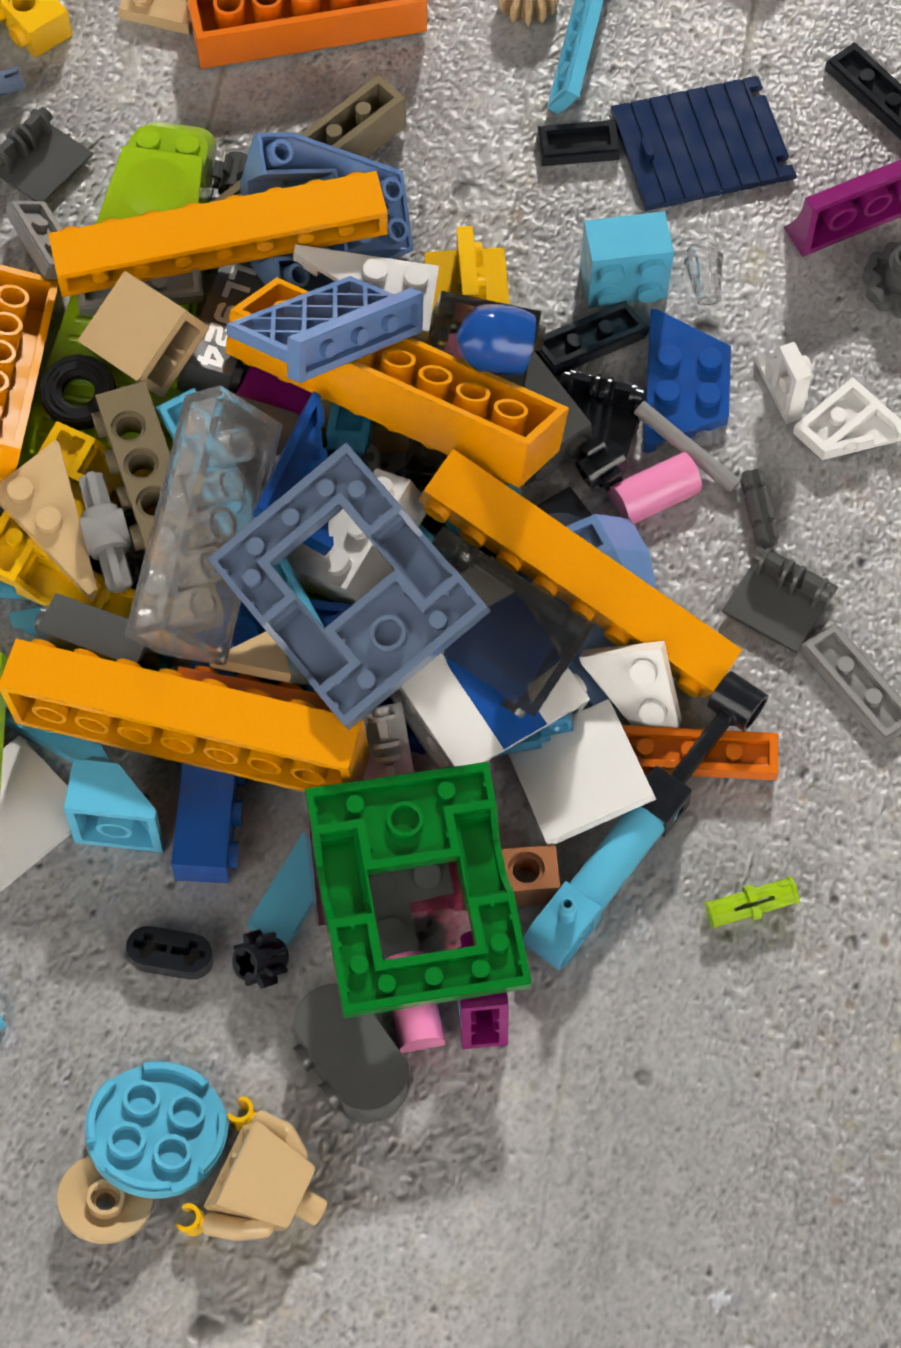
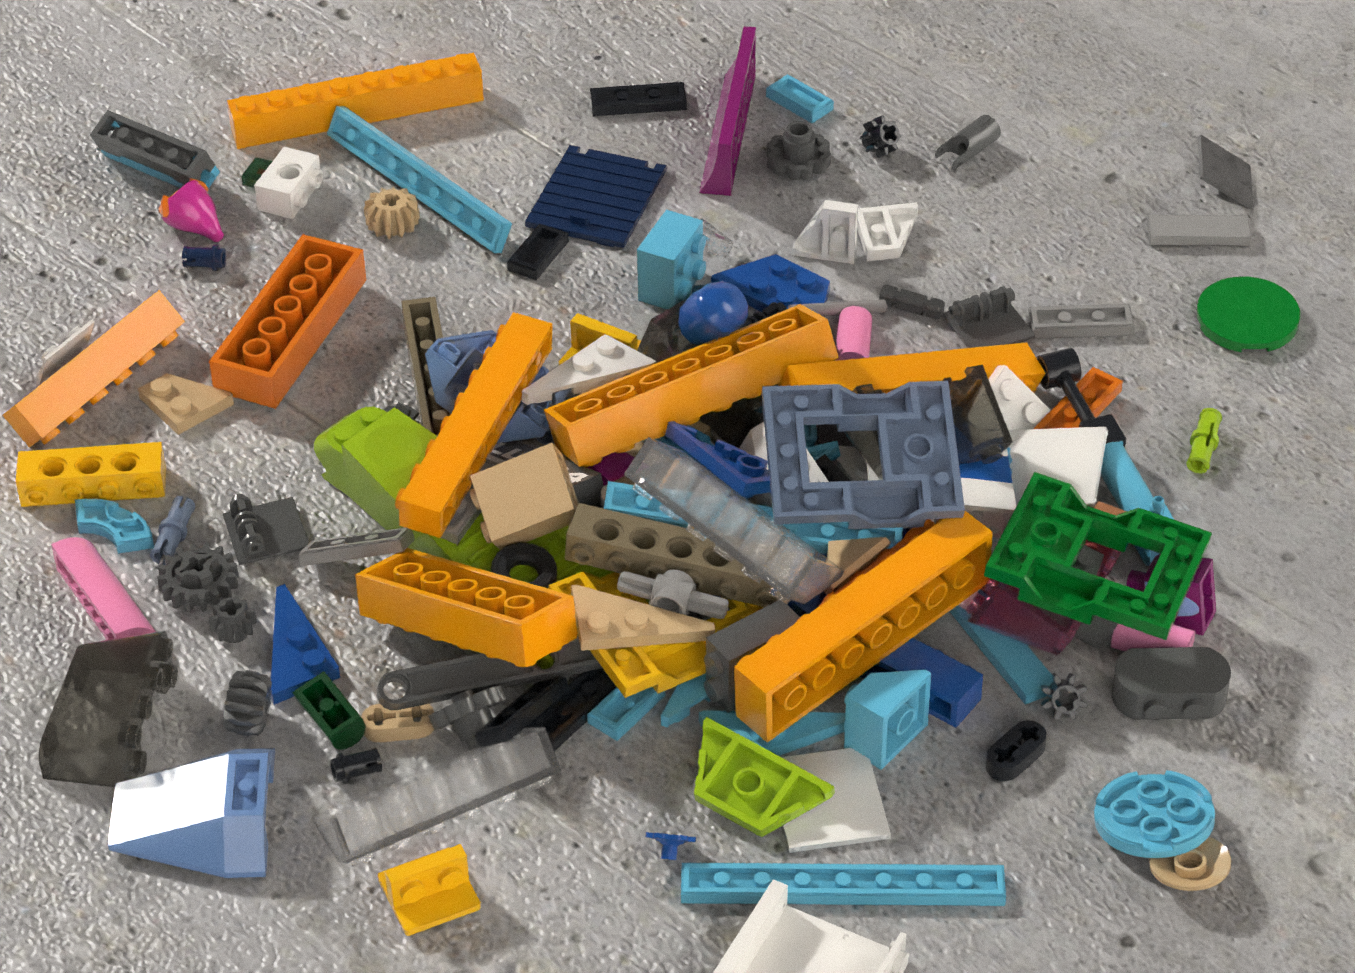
camera: 55 degrees left, 20 degrees down
(259, 1182) = (1238, 768): tan torso -> none
(331, 326) = (629, 379): medium blue fence -> none

